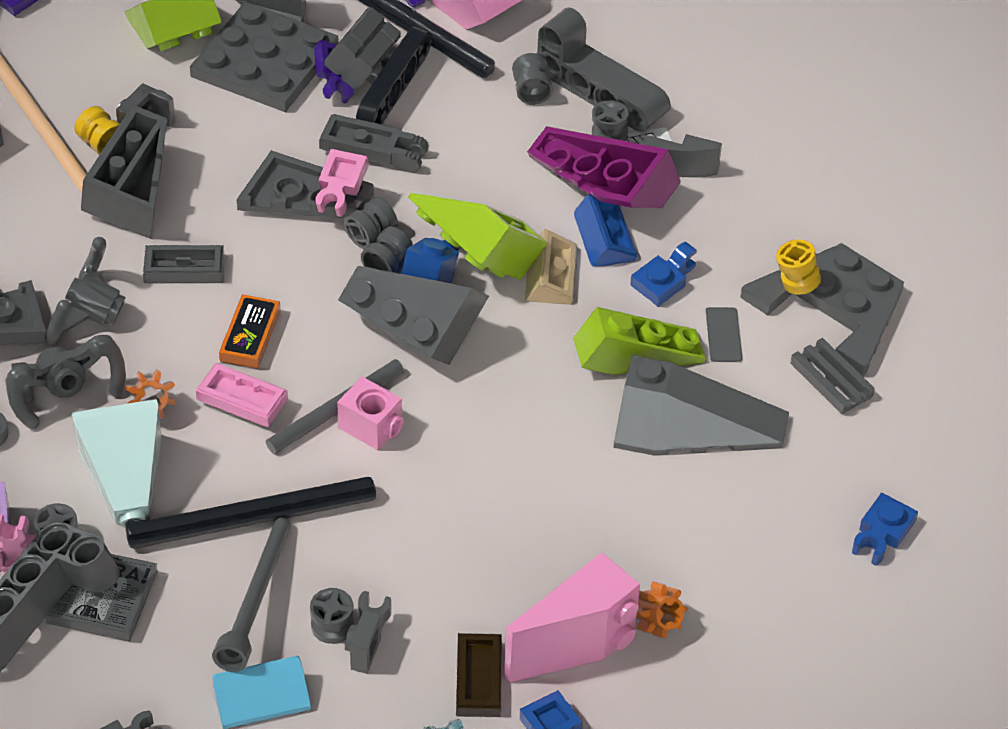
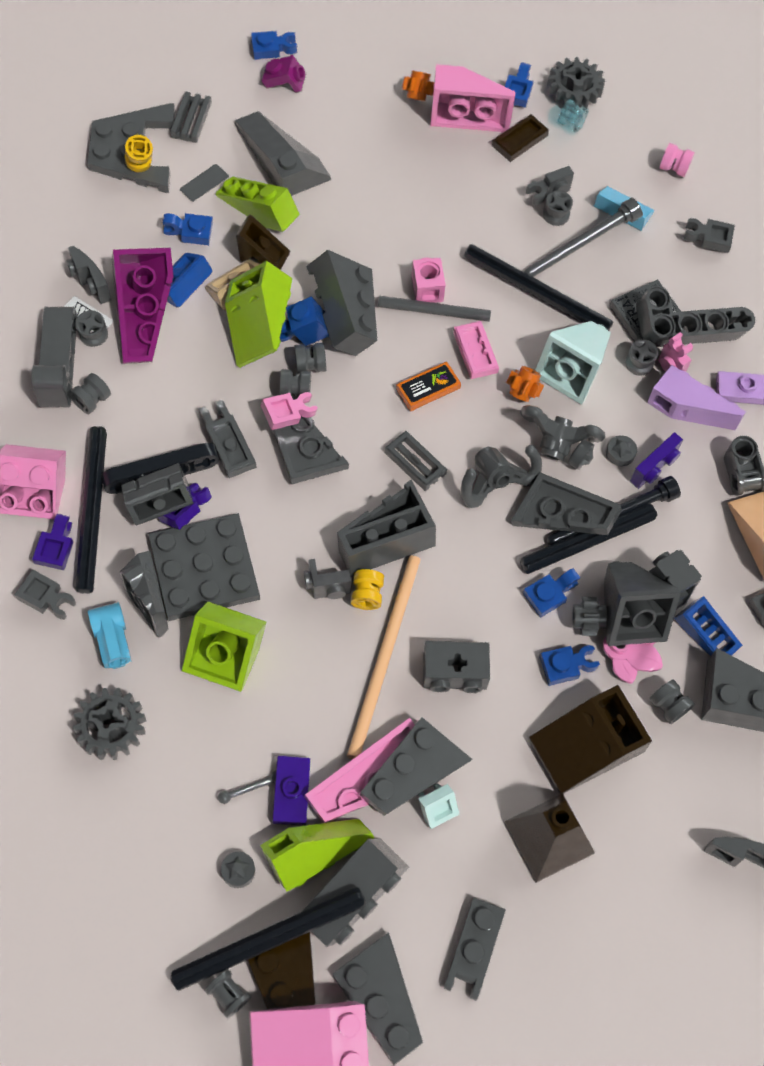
camera: 135 degrees left, 15 degrees up
(572, 293) = (257, 241): none -> dark brown slope
(812, 496) = (284, 71): none -> magenta bracket

